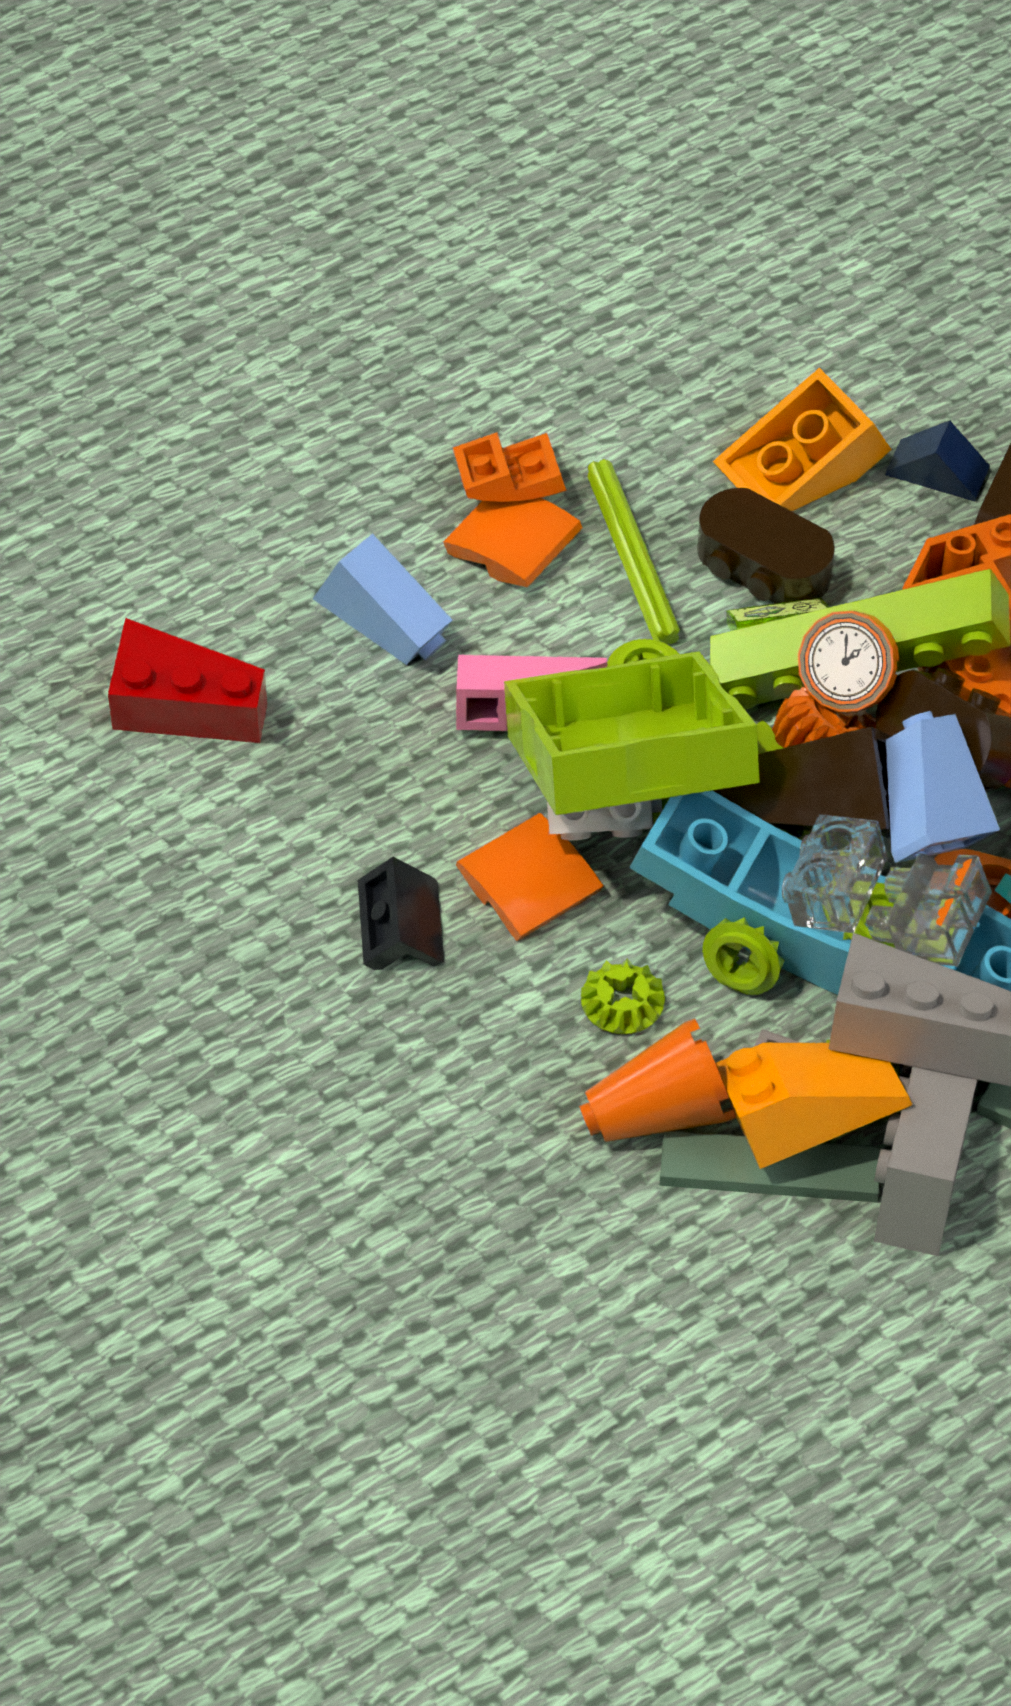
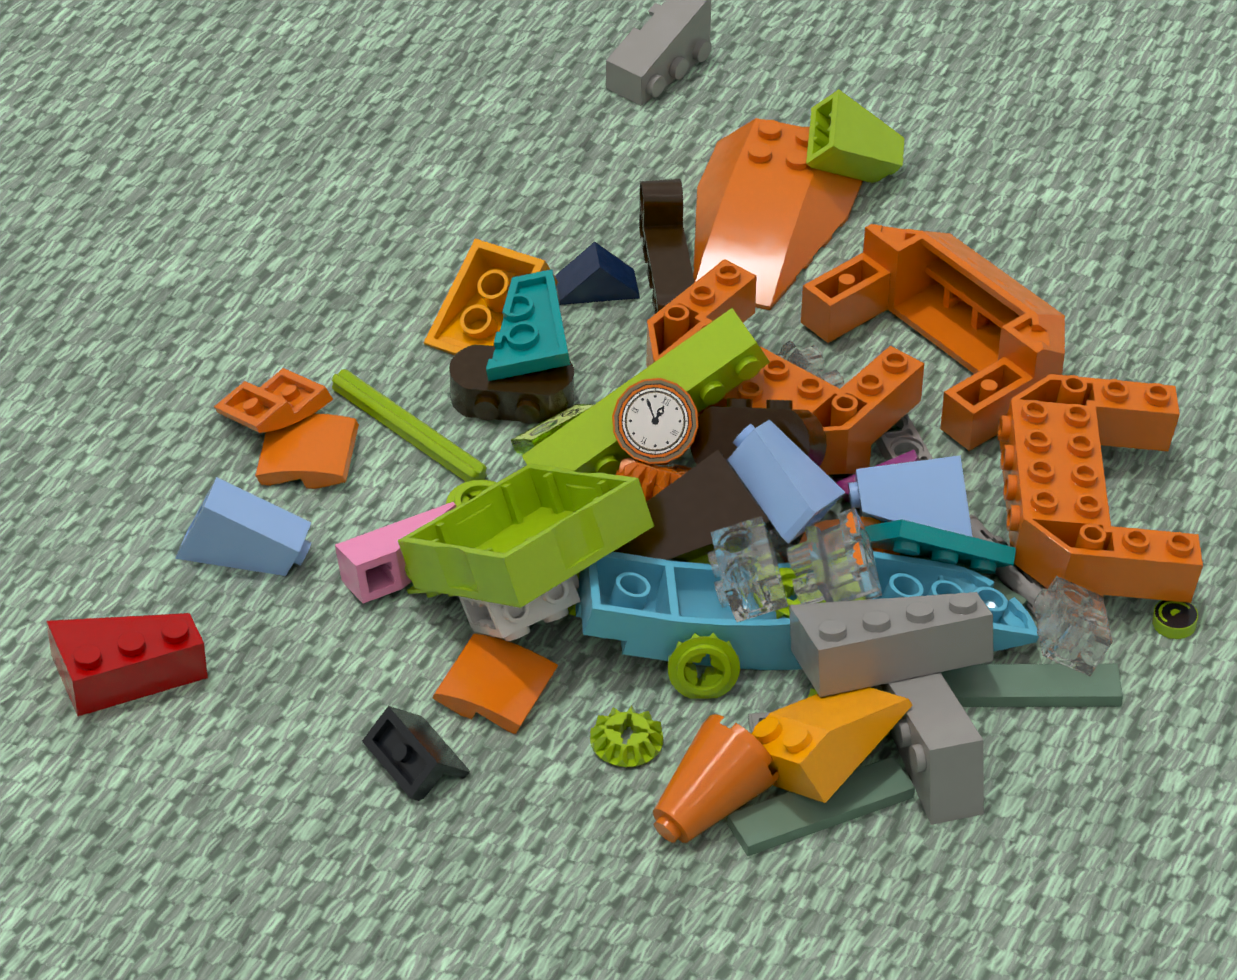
camera: 30 degrees left, 10 degrees down
(812, 497) = (531, 329): none -> teal wing

